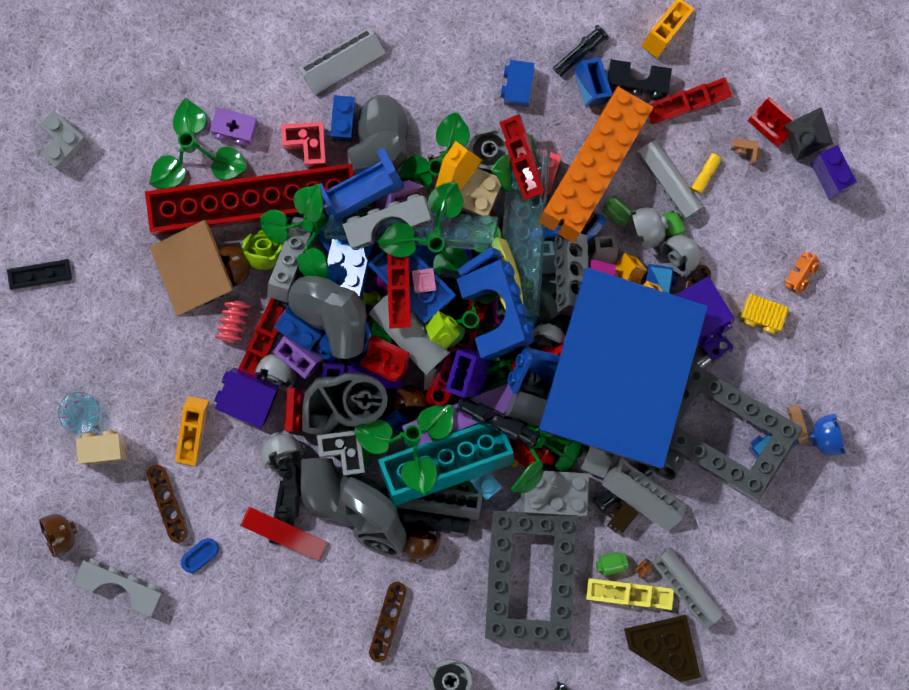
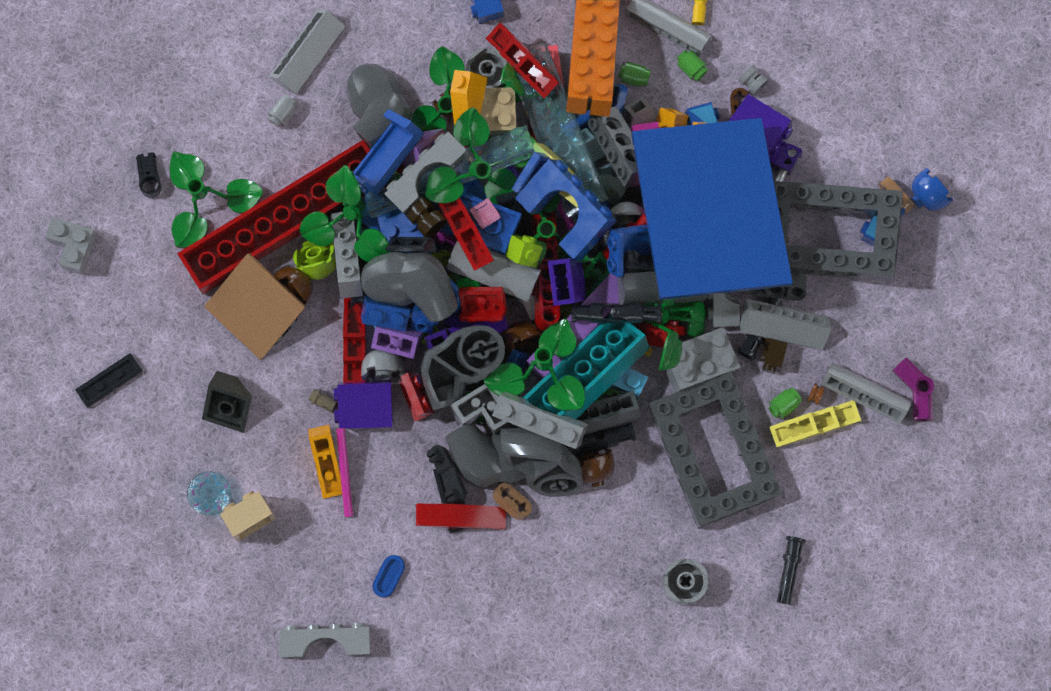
camera: 25 degrees left, 5 degrees down
(58, 533) = (242, 616): reddish brown cylinder -> none
(130, 340) = (227, 402): none -> pearl dark grey slope
(155, 106) = (148, 172): none -> black piece
(163, 505) = (332, 543): reddish brown beam -> none
(202, 448) = (344, 472): none -> dark pink bar
(213, 376) = (322, 400): none -> dark tan pin
(225, 118) = (221, 154): medium lavender brick -> none
(232, 321) = (316, 338): coral piece -> none
(280, 449) = (419, 439): light grey cylinder -> none
(296, 105) = (282, 111): none -> light grey brick
(307, 137) = (309, 135): coral brick -> none
(336, 537) = (512, 501): none -> medium nougat beam
(342, 118) = (334, 103): blue brick -> none
(346, 279) = (412, 244): none -> black slope
(370, 261) = (423, 215): none -> dark brown wheel
(370, 472) = (552, 426): none -> light grey arch
(386, 621) = (602, 555): reddish brown beam -> none
(650, 226) = (672, 73): light grey cylinder -> none
(666, 646) = (872, 457): dark brown plate -> none
(682, 253) = (713, 86): light grey cylinder -> none
(720, 263) = (753, 79): none -> light grey wheel
(734, 591) = (922, 401): none -> magenta piece
(763, 314) = (815, 107): yellow brick -> none
(807, 266) = (834, 45): orange hinge -> none

